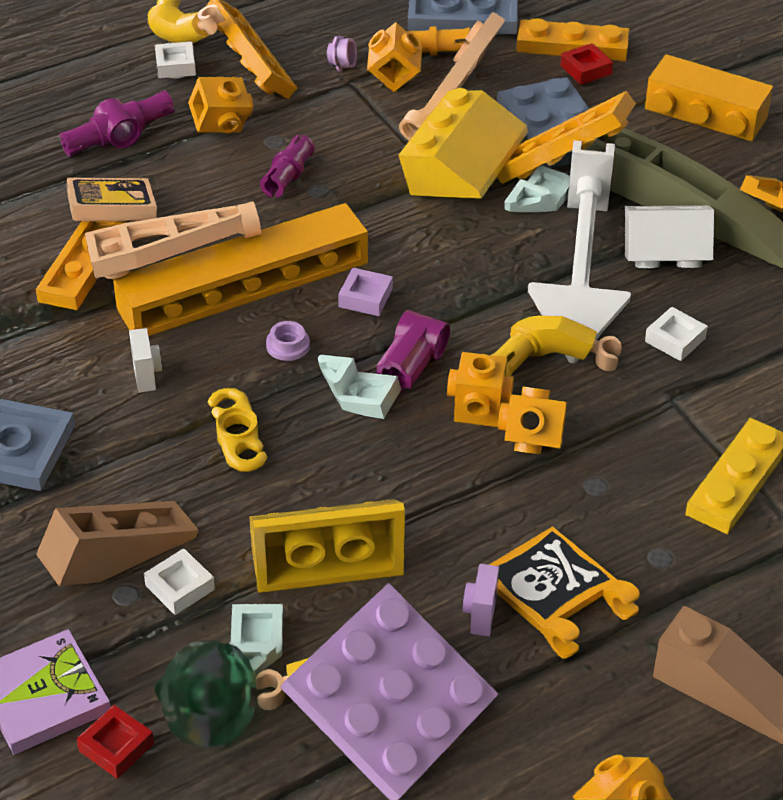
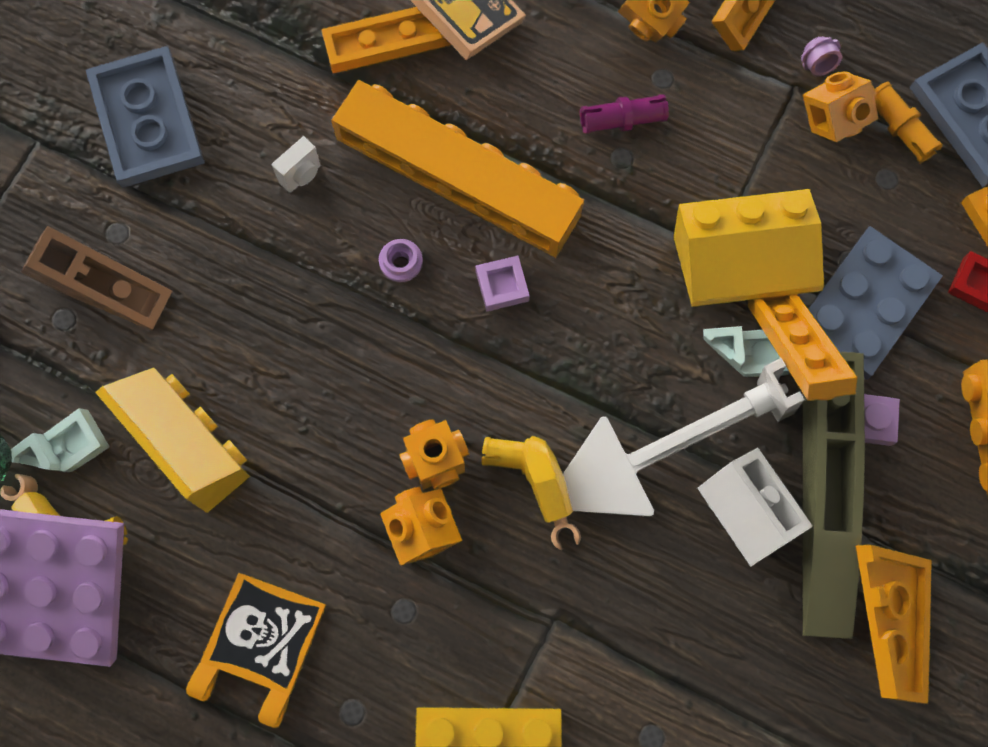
camera: 55 degrees right, 30 degrees up
(115, 256) = (395, 50): light nougat plate -> none
(179, 581) = (82, 353): white plate -> none
(235, 444) = (256, 294): yellow piece -> none
(359, 391) = (385, 350): light aqua slope -> none
(414, 344) = (467, 365): magenta piece -> none
(466, 61) = (898, 171): light nougat plate -> none
(481, 599) = (194, 597): lavender plate -> none
(676, 333) = (630, 583): white plate -> none

